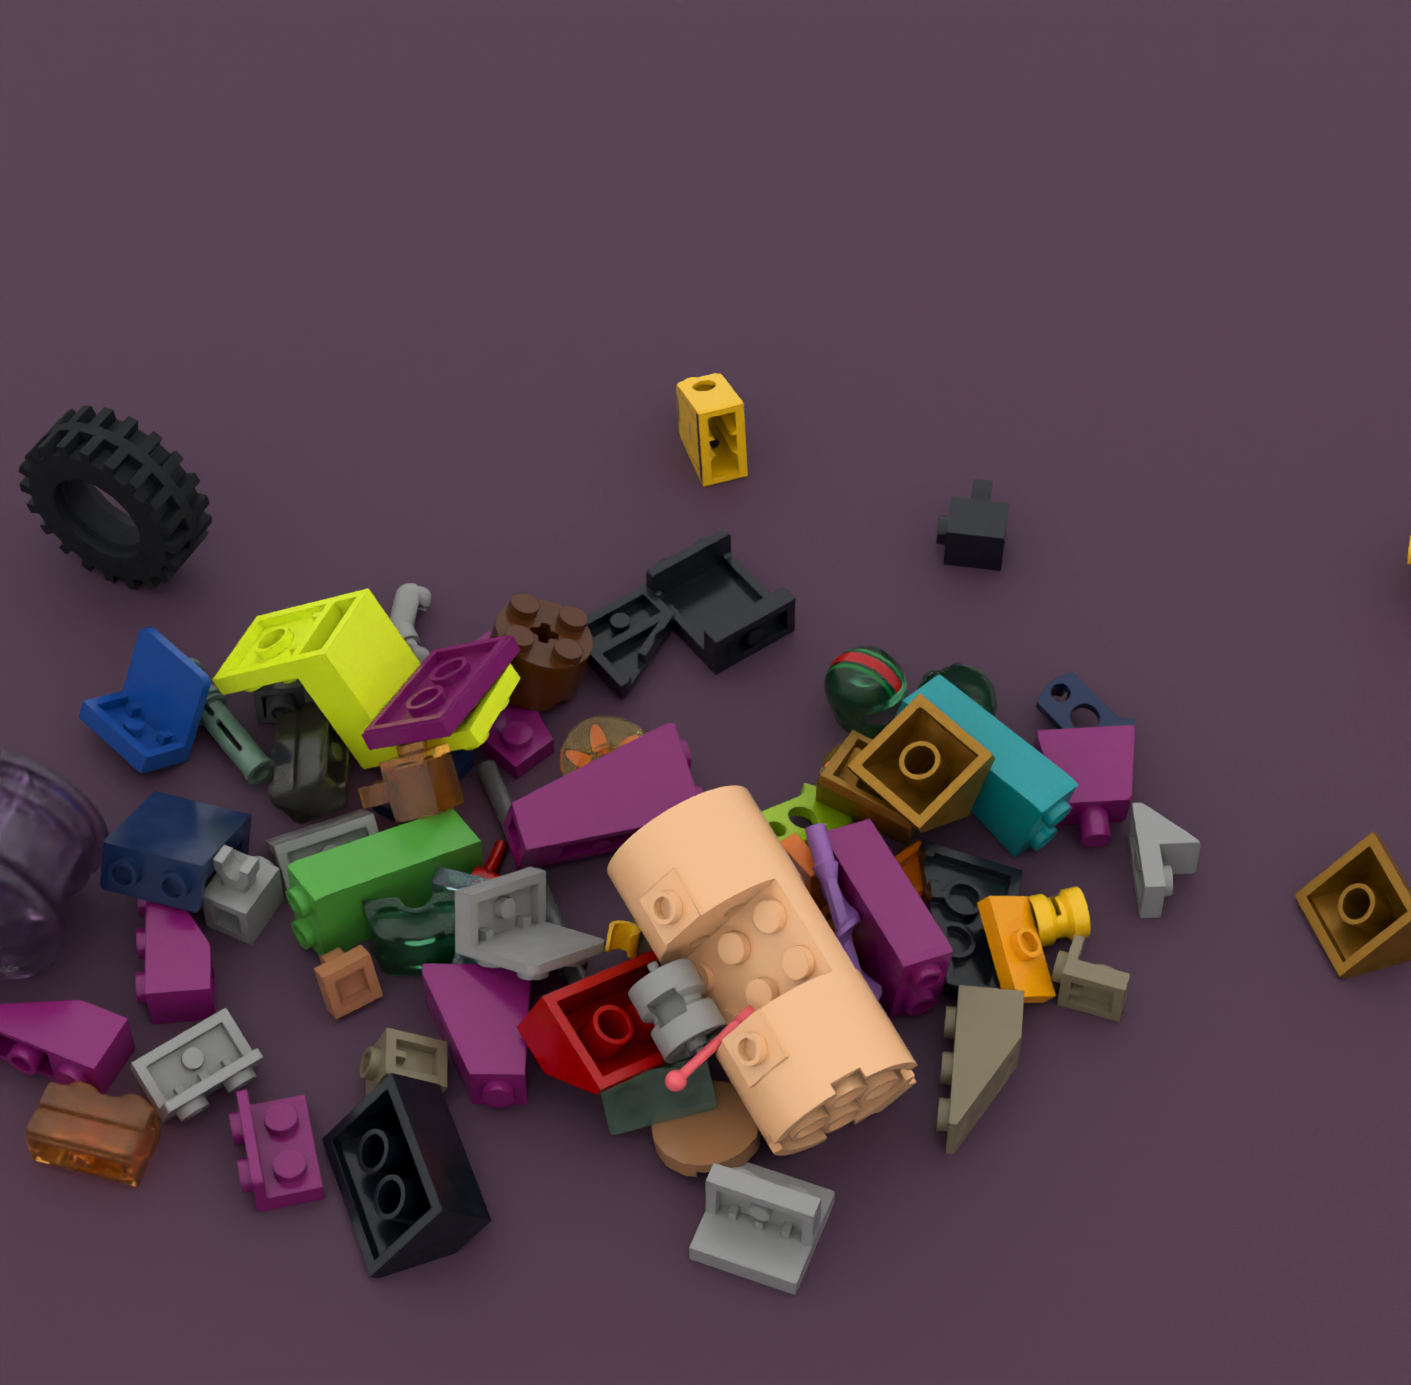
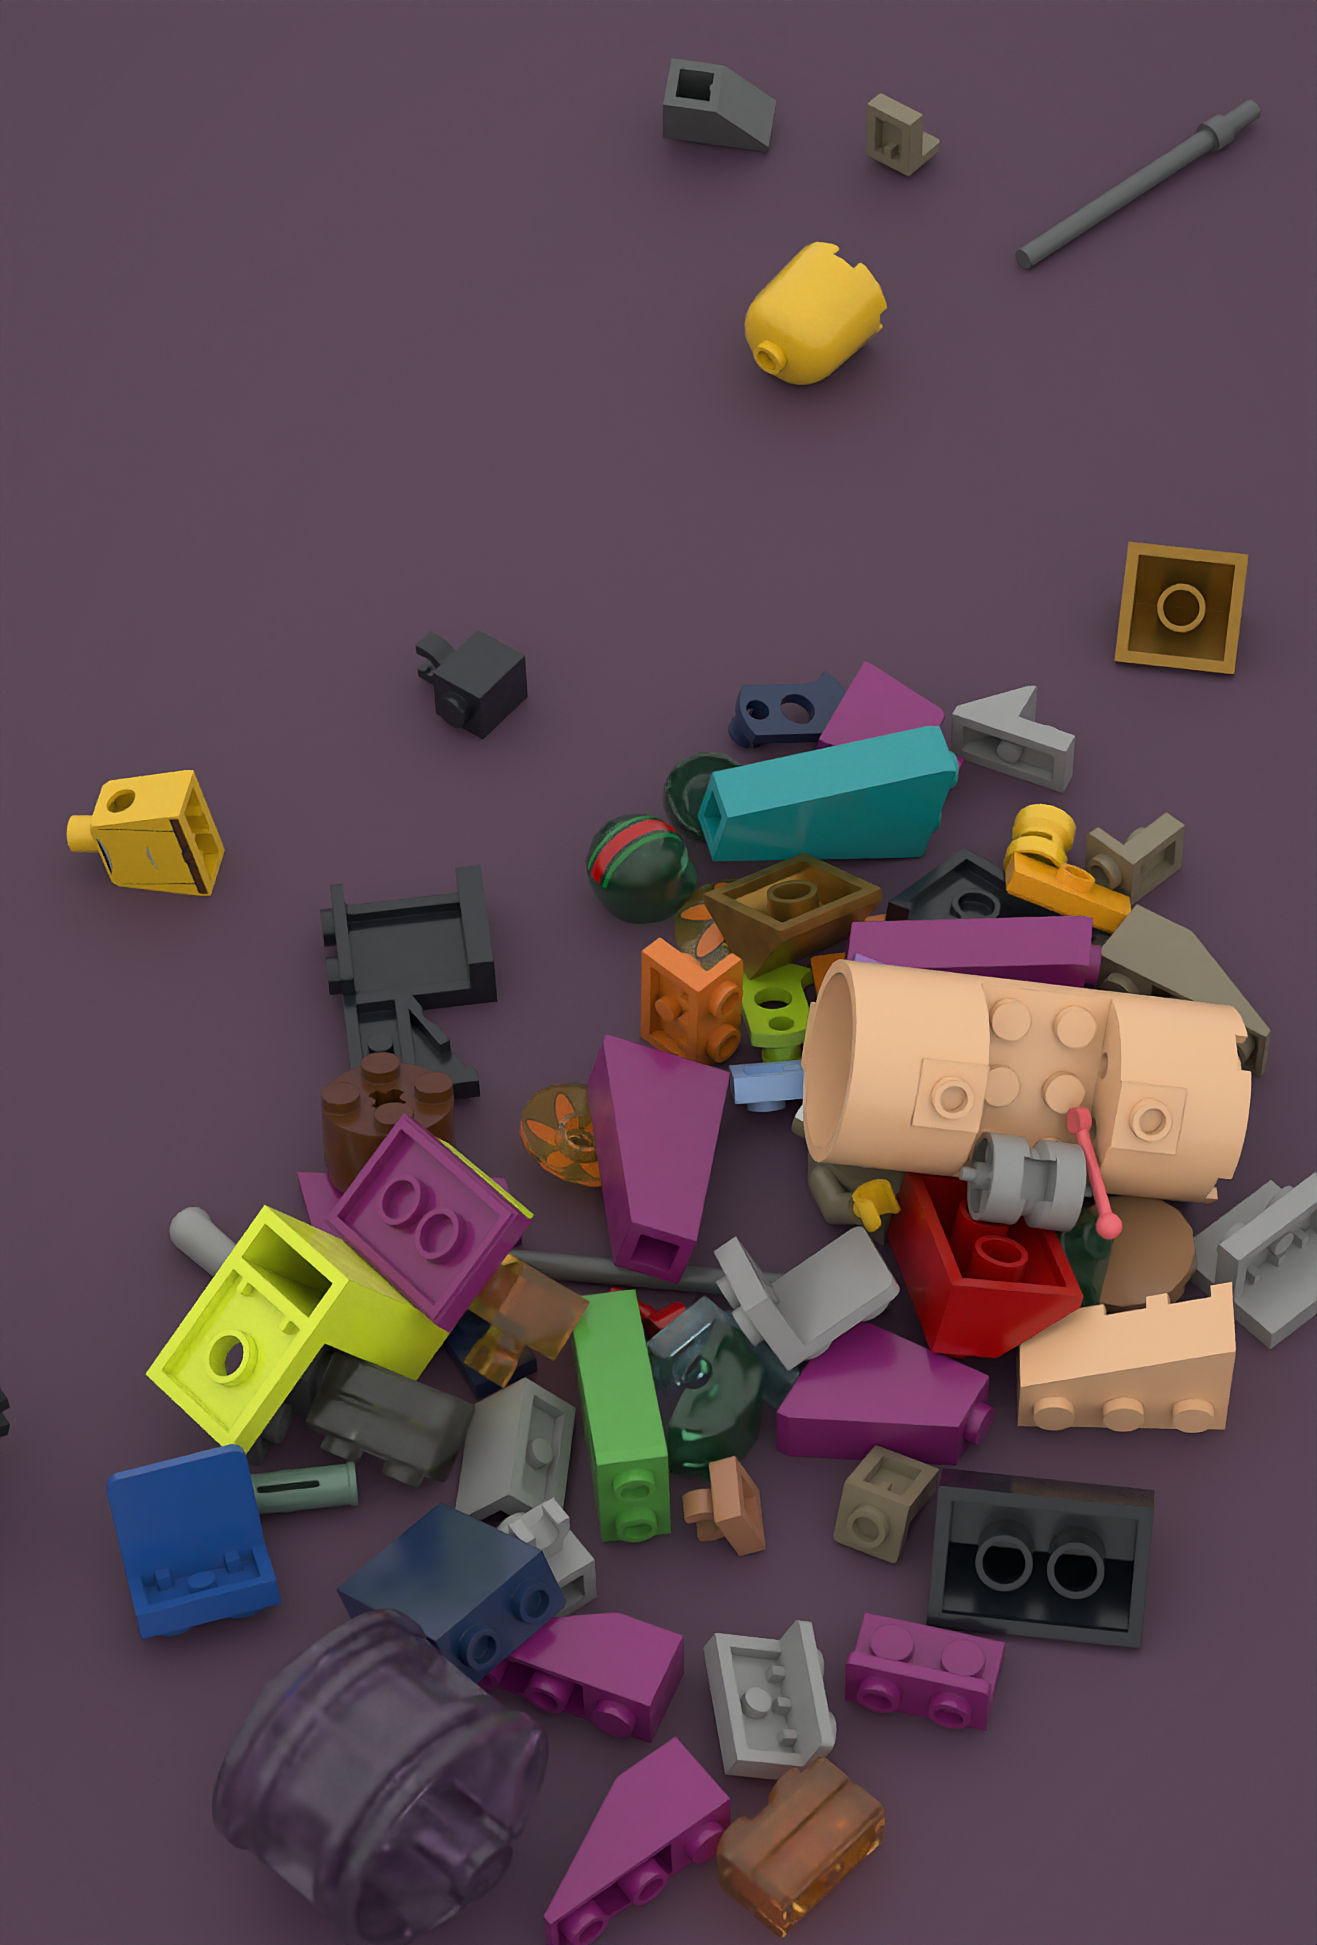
camera: 60 degrees left, 0 degrees up
(593, 1167) = (1132, 1367): none -> light nougat wedge
(746, 760) = (690, 1008): none -> orange bracket
(924, 766) = (823, 838): pearl gold slope -> none

